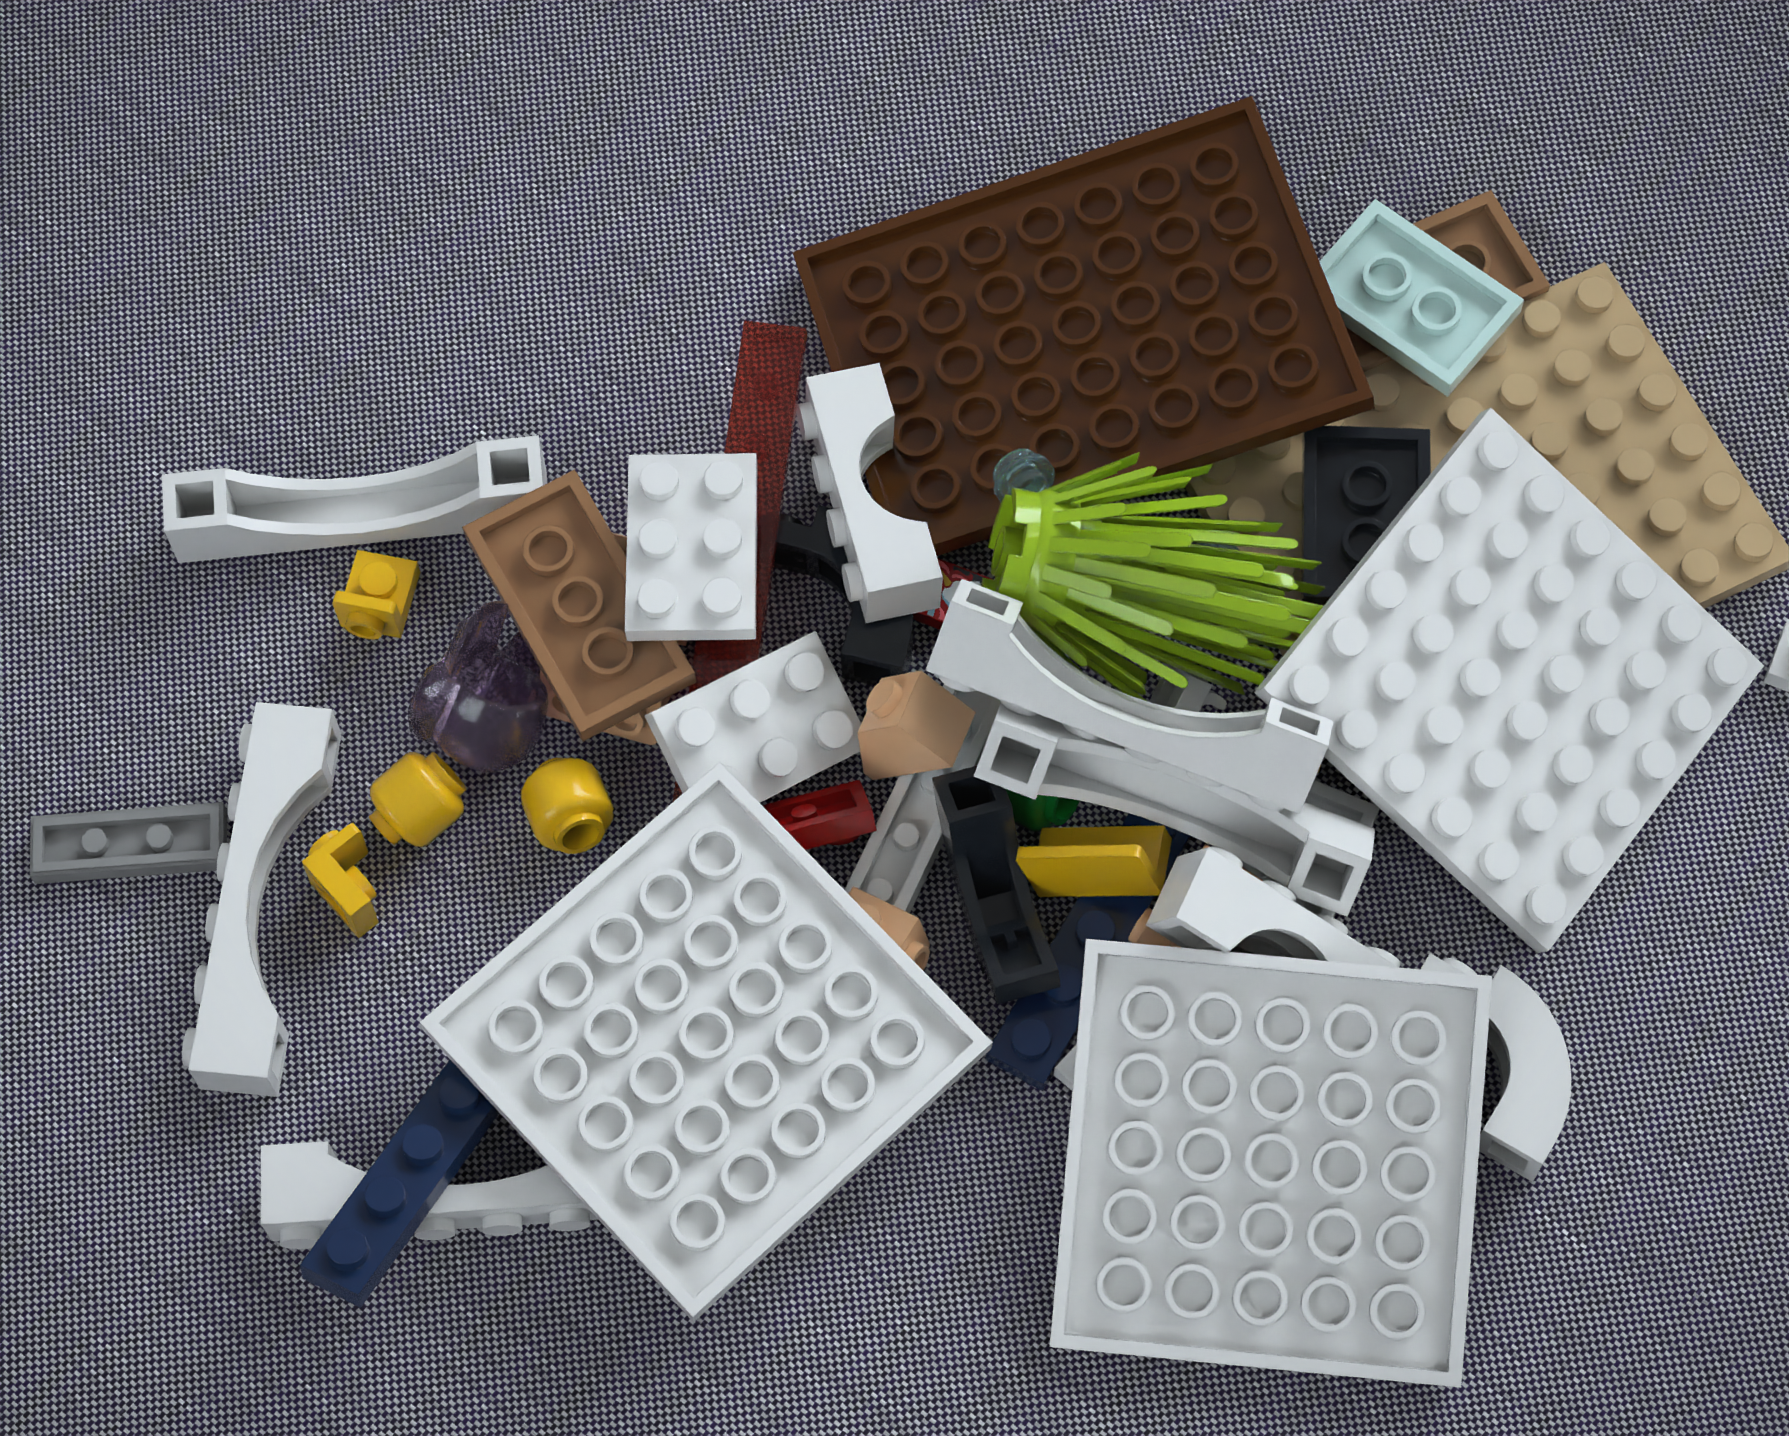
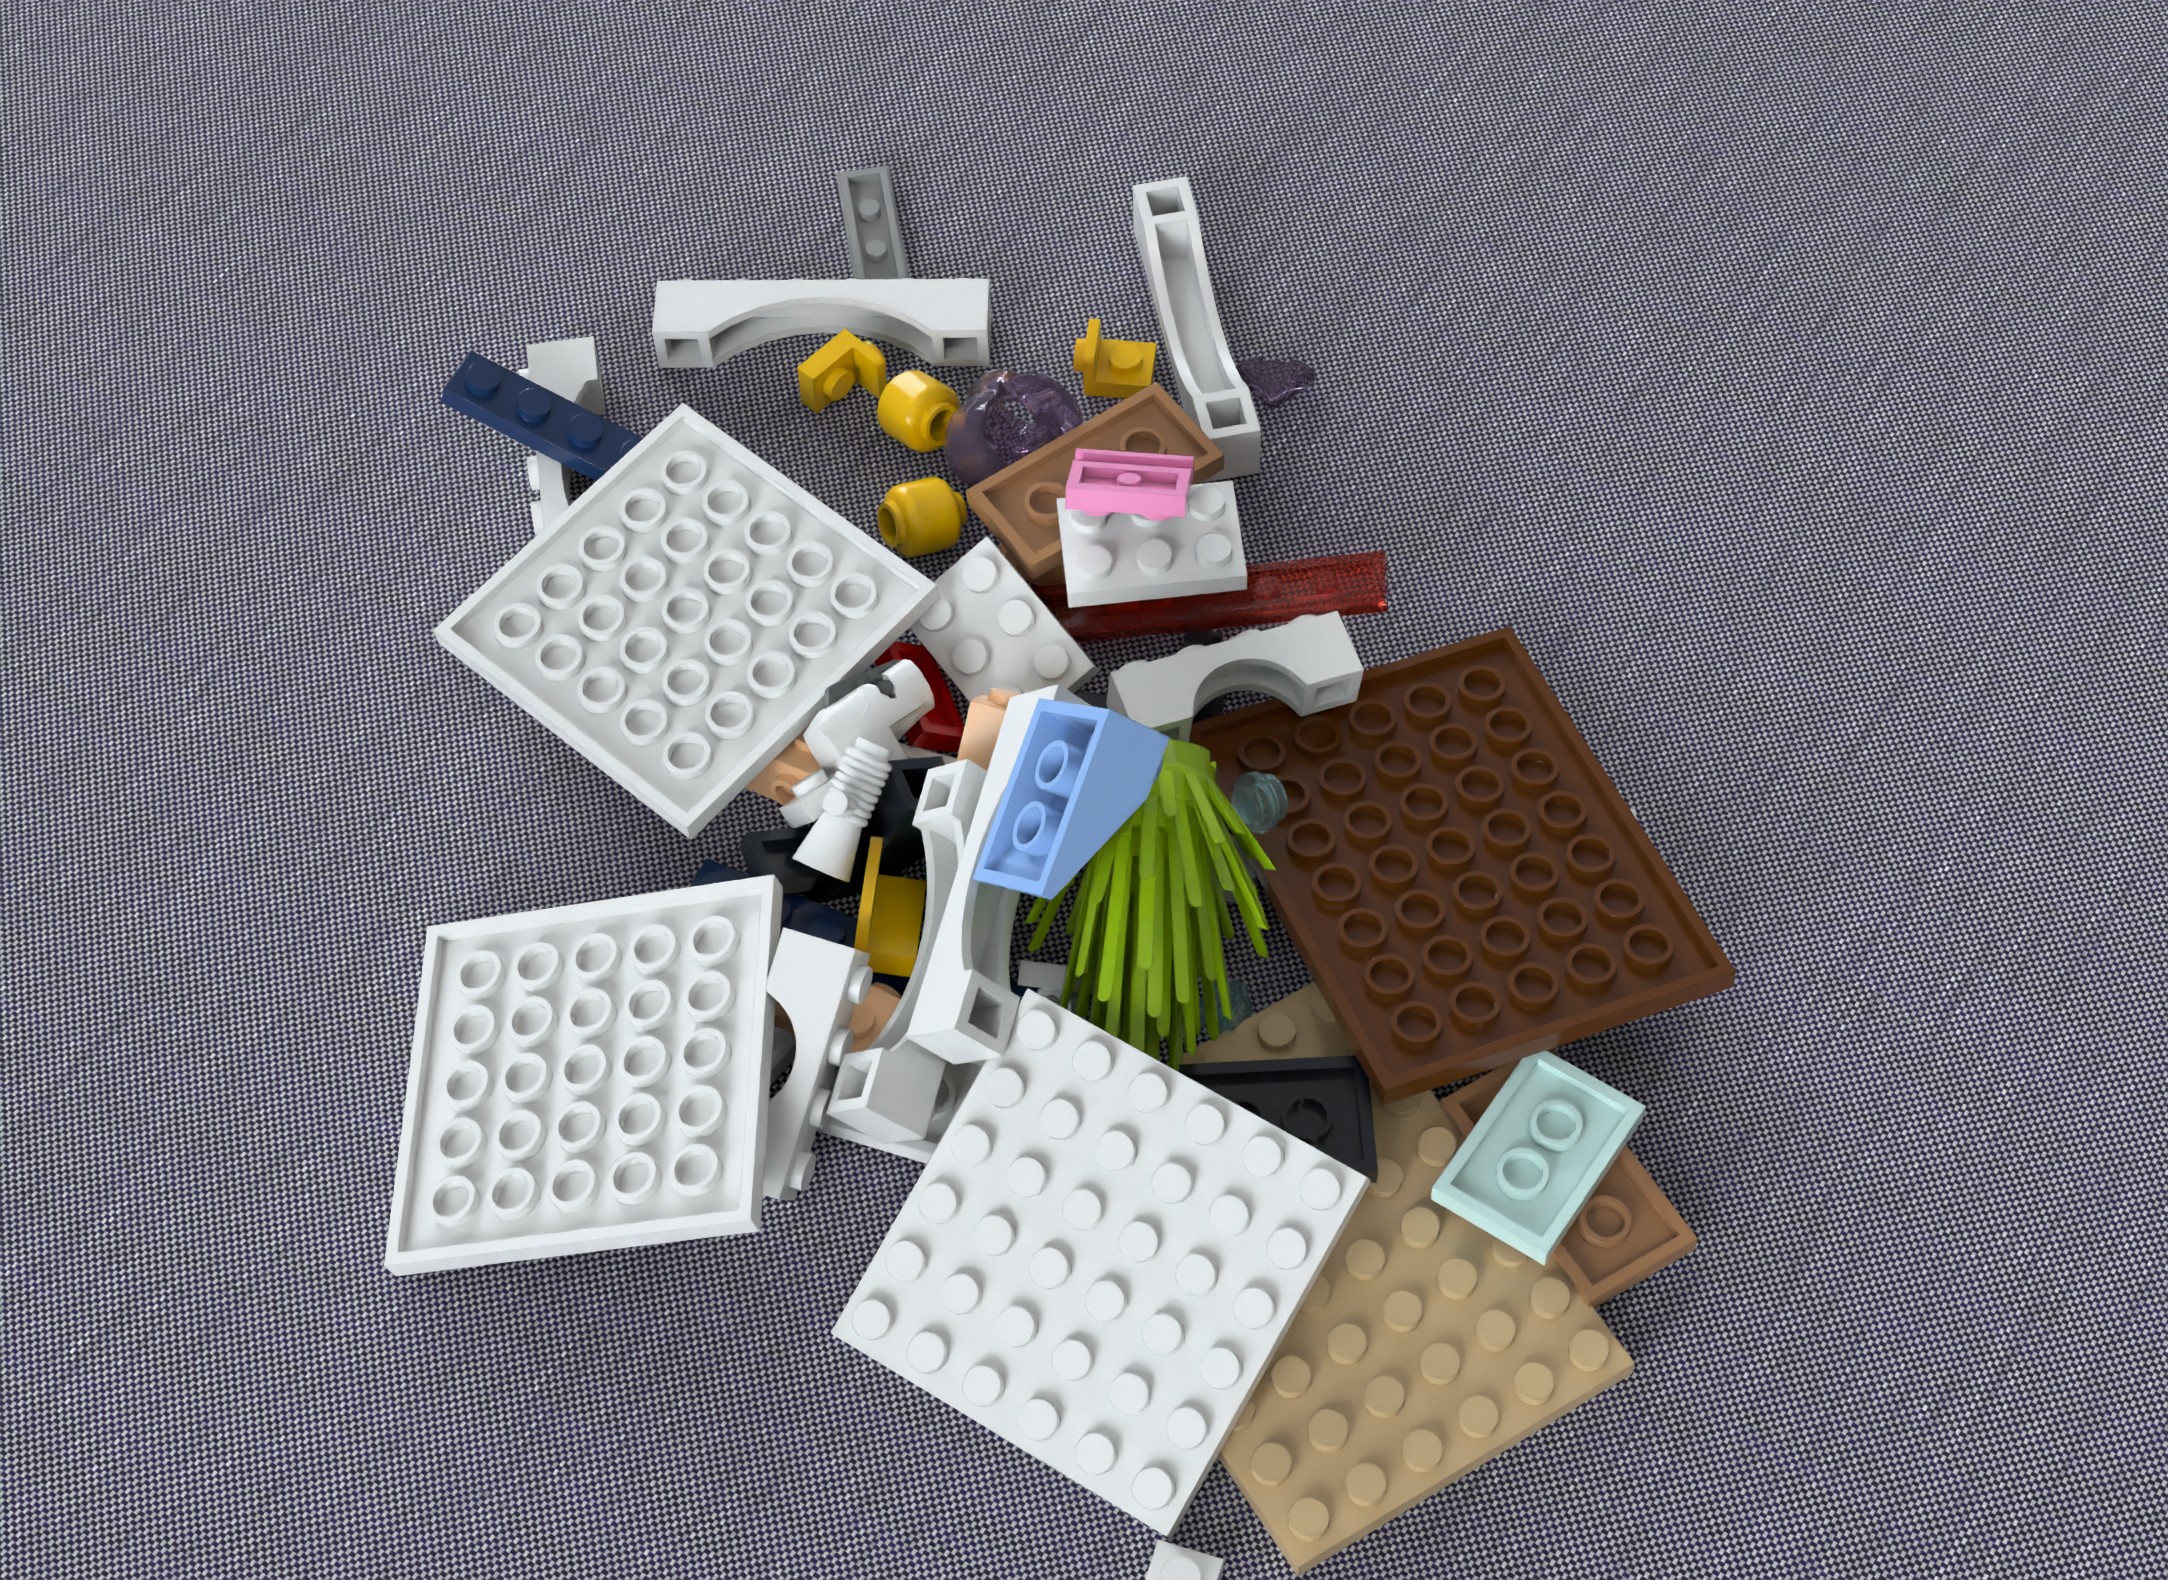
camera: 85 degrees right, 10 degrees down
(420, 438) = (1274, 380): none -> clear purple tile
(641, 541) = (1129, 483): none -> bright pink plate
(901, 866) = (870, 705): none -> white plate
(1002, 870) = (846, 807): none -> white piece
(1101, 603) = (1067, 795): none -> light blue slope
(1531, 1070) = (711, 1315): white arch -> none

